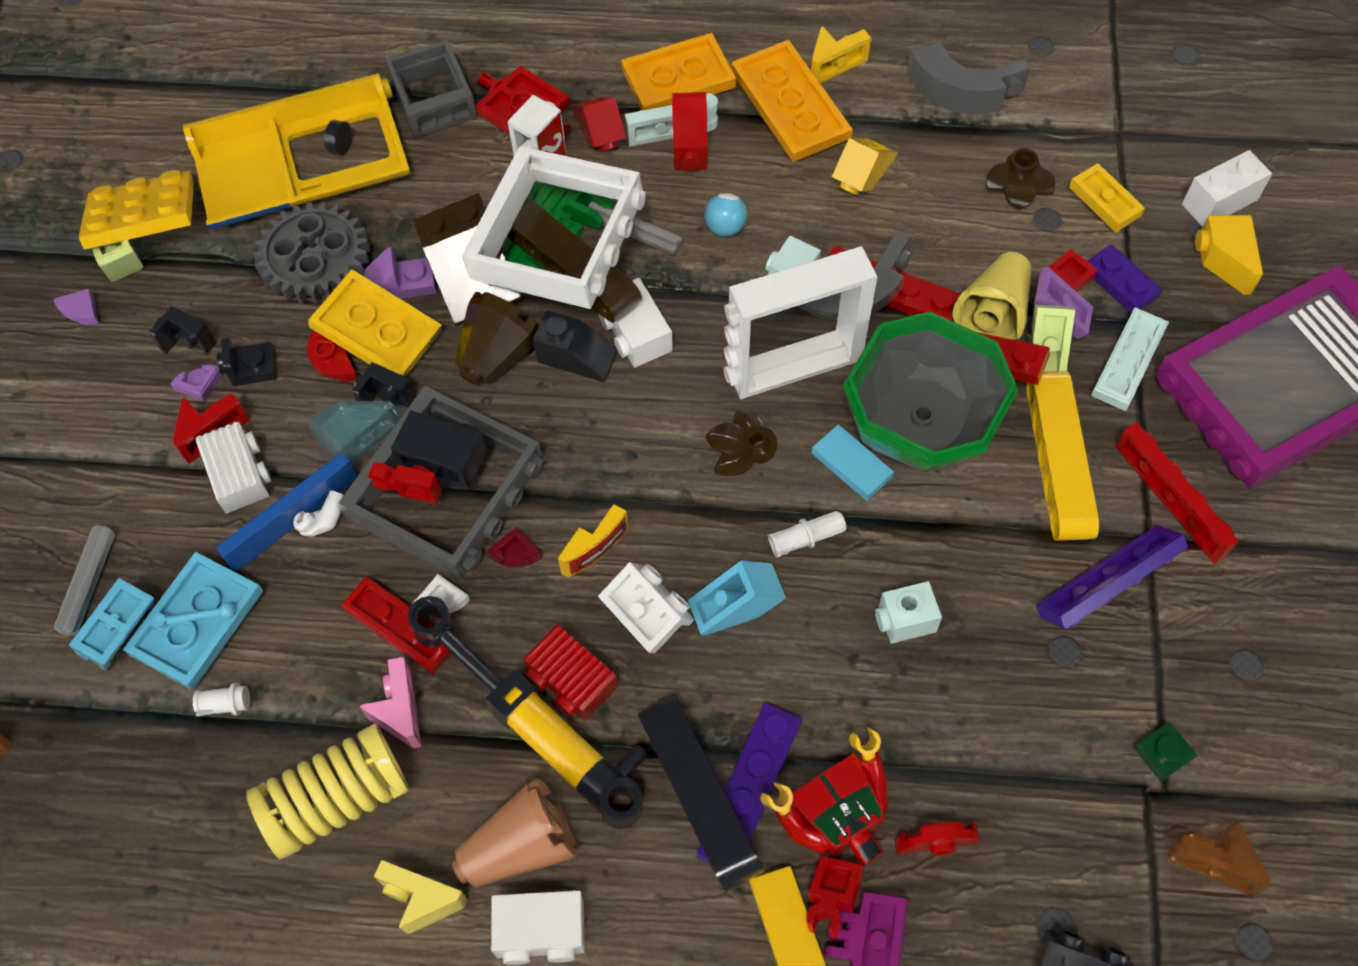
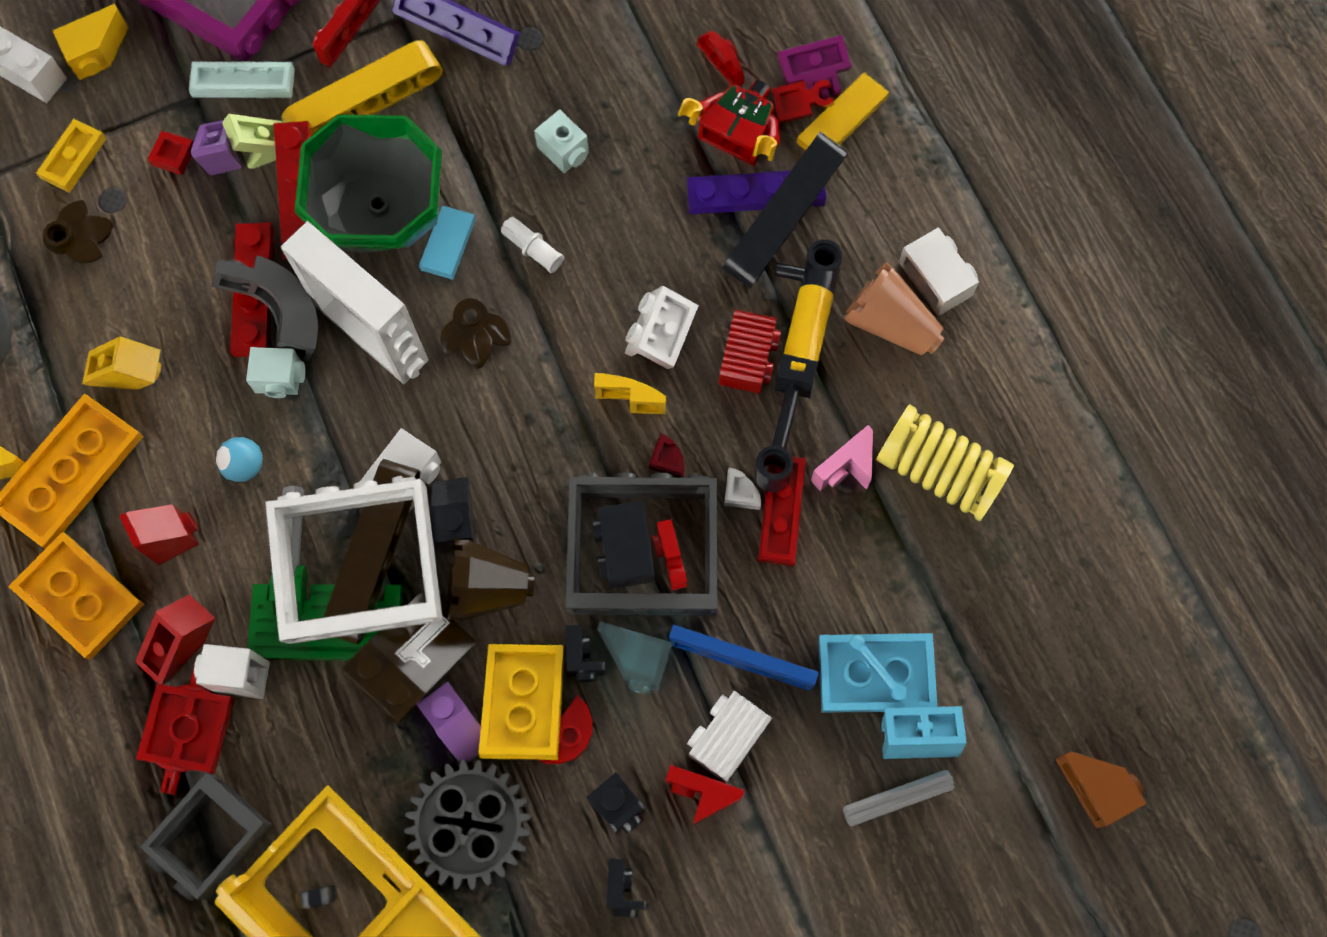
camera: 120 degrees left, 10 degrees up
(198, 382) = (660, 842): medium lavender tile -> none
(223, 700) = (924, 603): white pin -> none
(322, 520) = (728, 629): white arm -> none
(428, 900) = (969, 354): light yellow slope -> none
(657, 123) = (140, 566): light aqua plate -> none
(736, 597) = (618, 264): medium azure slope -> none
(997, 298) = (231, 189): light yellow cone -> none
(1124, 279) = (157, 113): dark purple plate -> none

